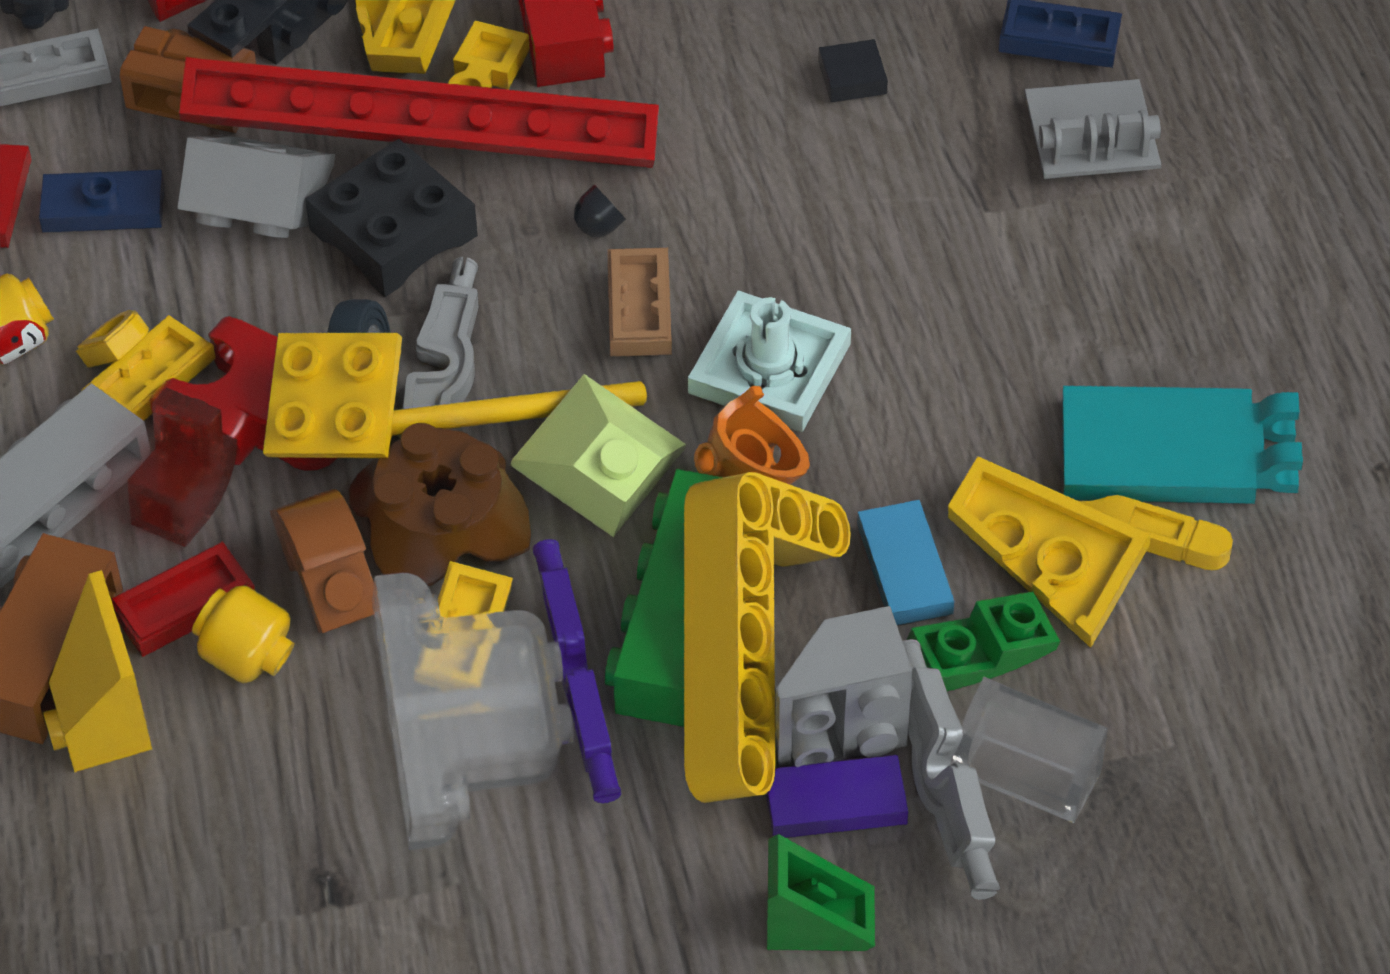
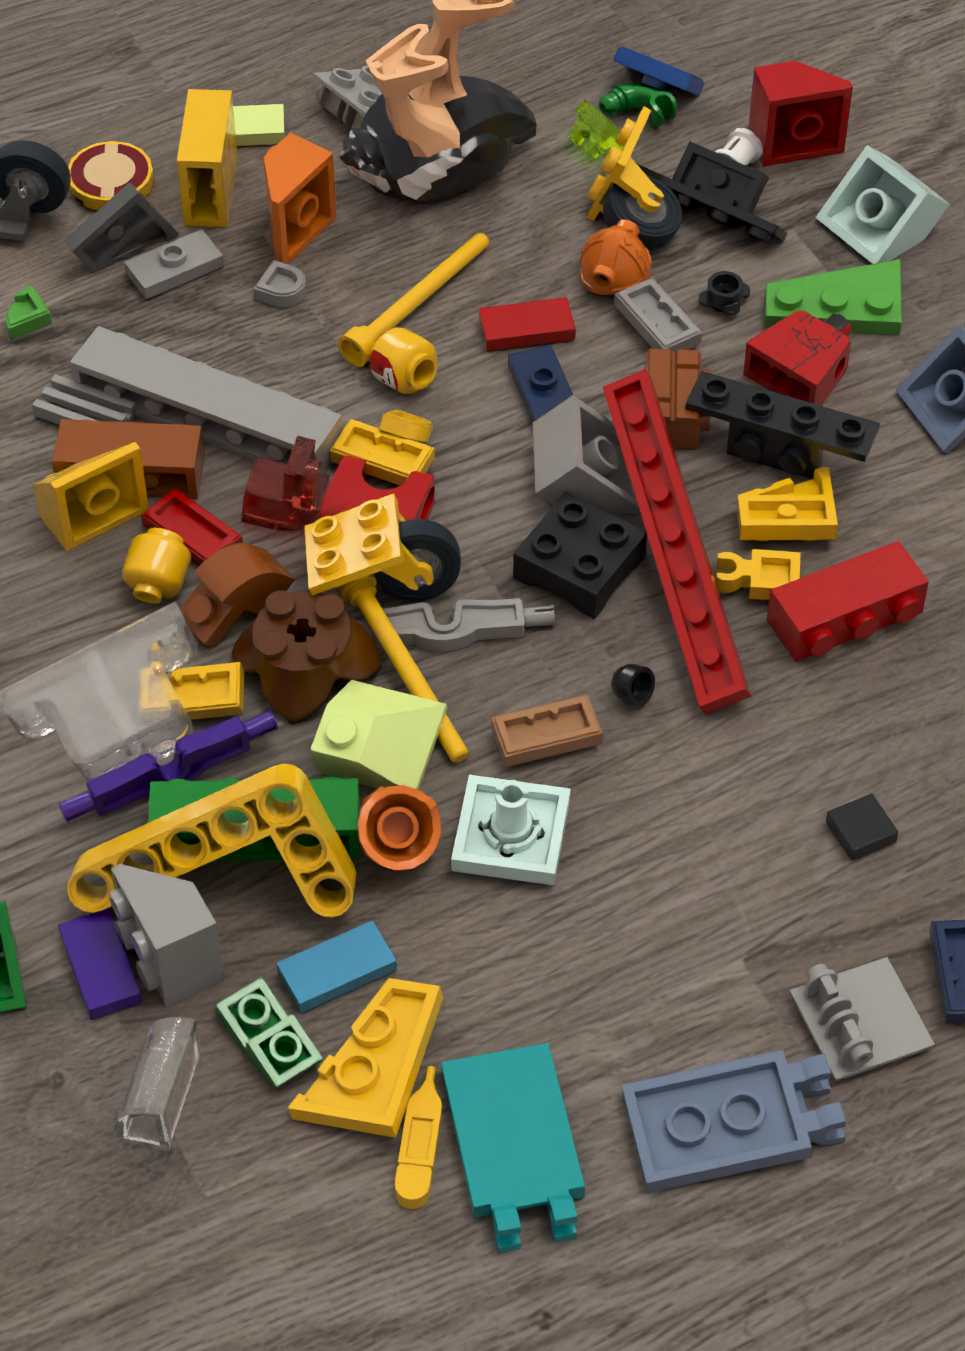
camera: 75 degrees right, 0 degrees up
(948, 790) = (116, 1028): light grey piece -> none
(1190, 262) = (729, 1118): none -> sand blue tile

